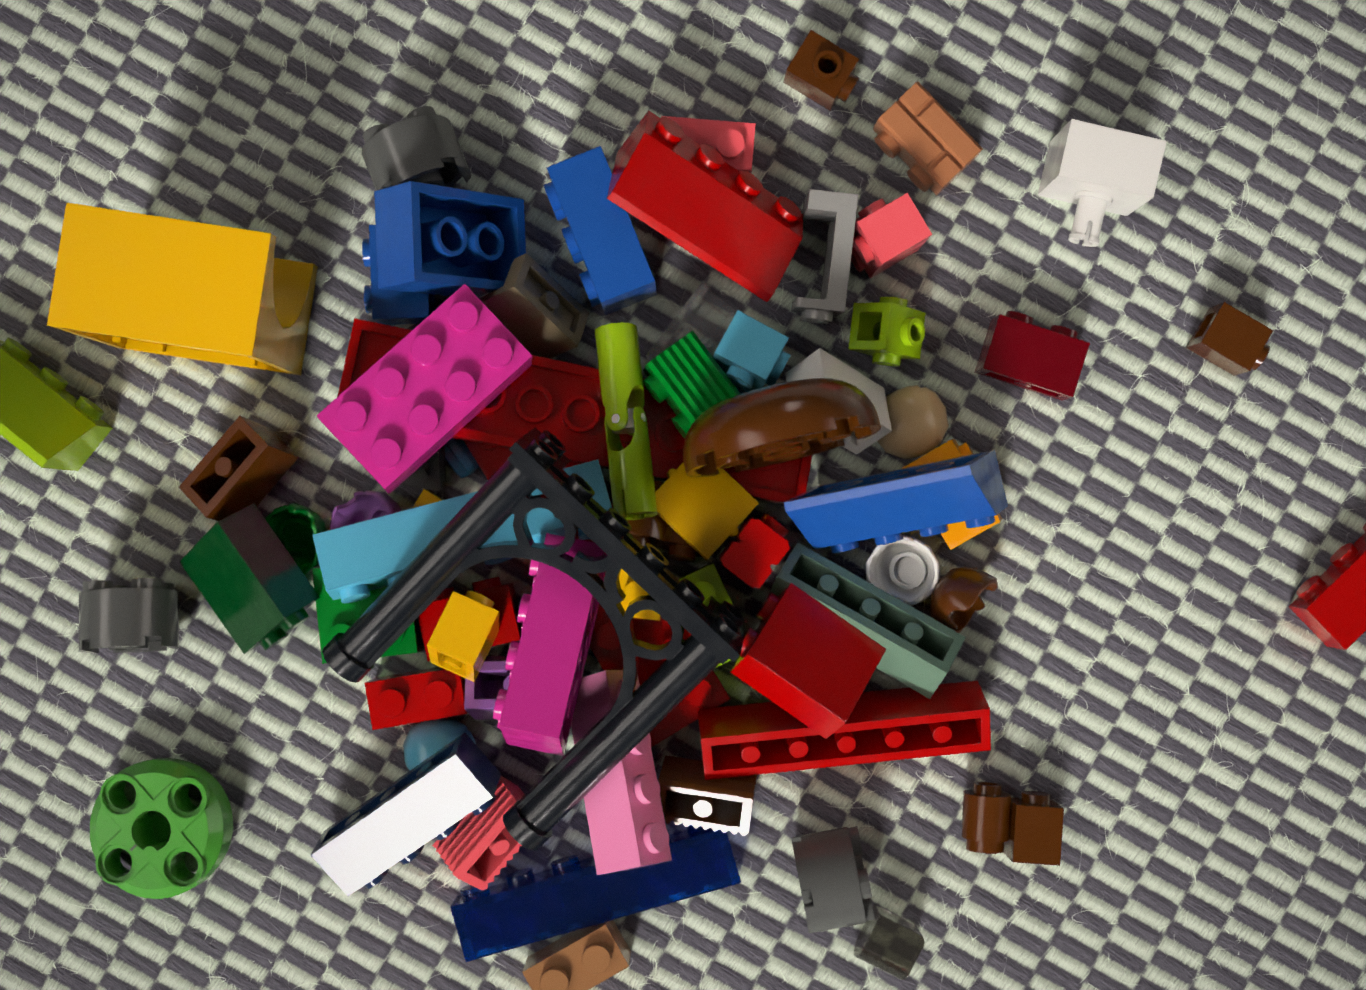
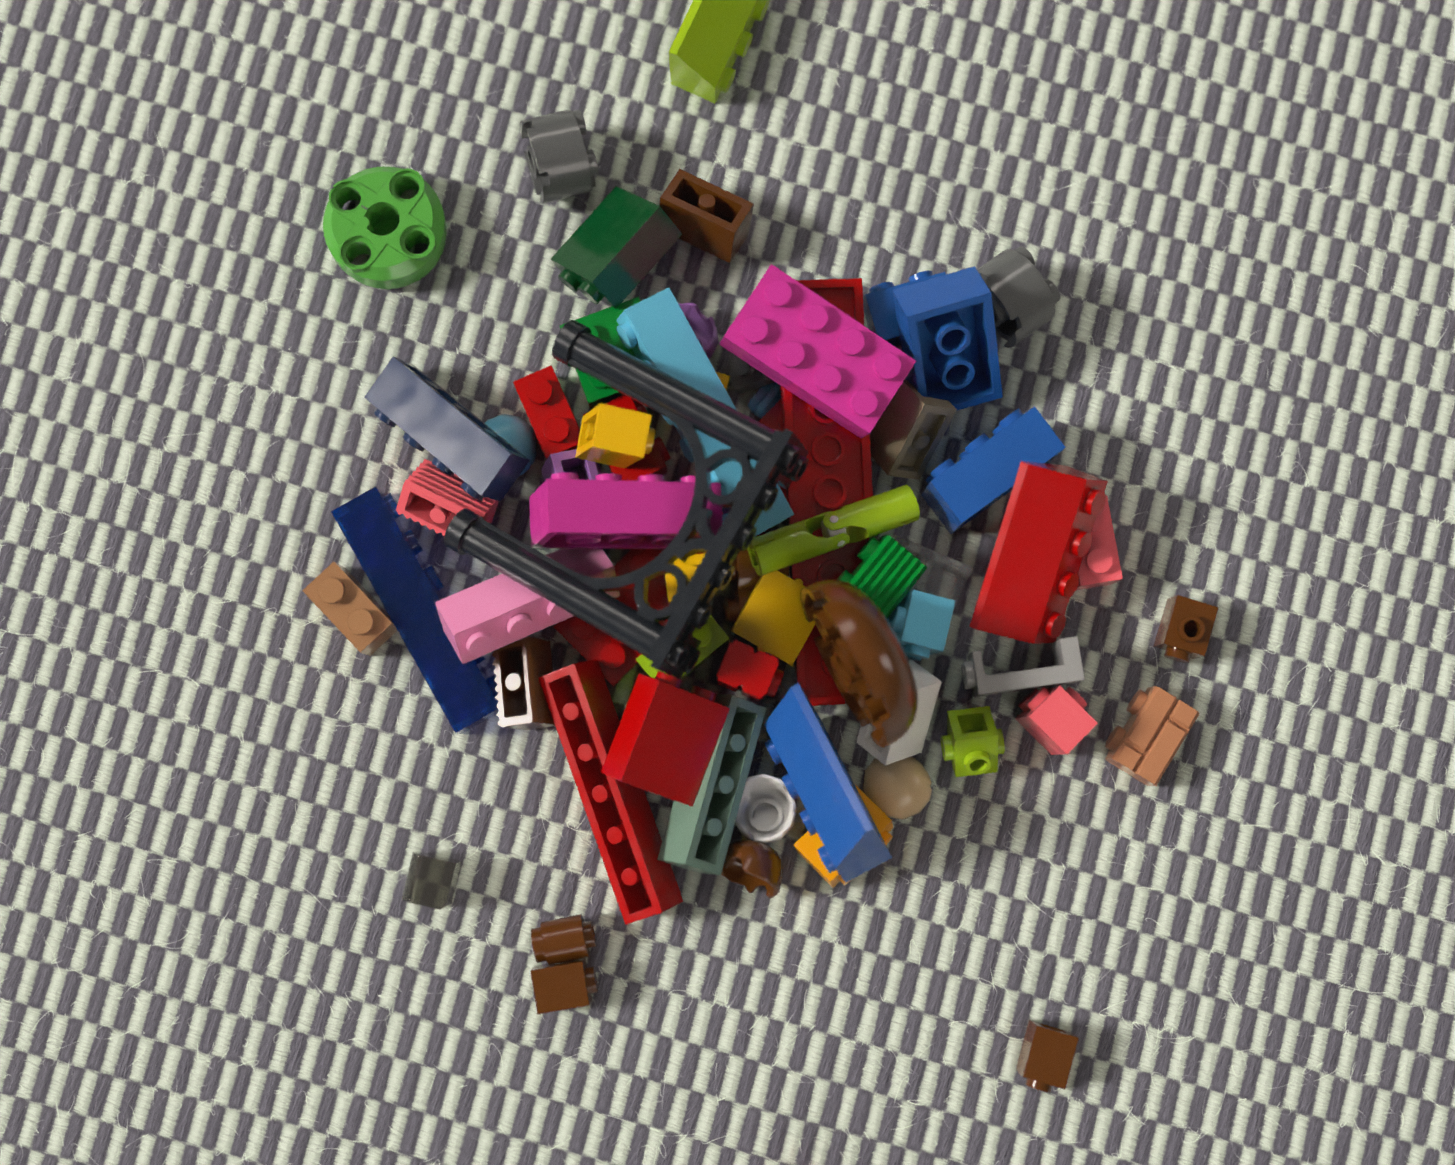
camera: 75 degrees right, 5 degrees down
(181, 289) = (847, 130): yellow piece -> none
(294, 527) = (669, 272): green hair -> none
(833, 879) = (477, 812): dark grey brick -> none
(1032, 355) = (985, 878): dark red brick -> none
(1100, 173) = (1163, 896): white brick -> none

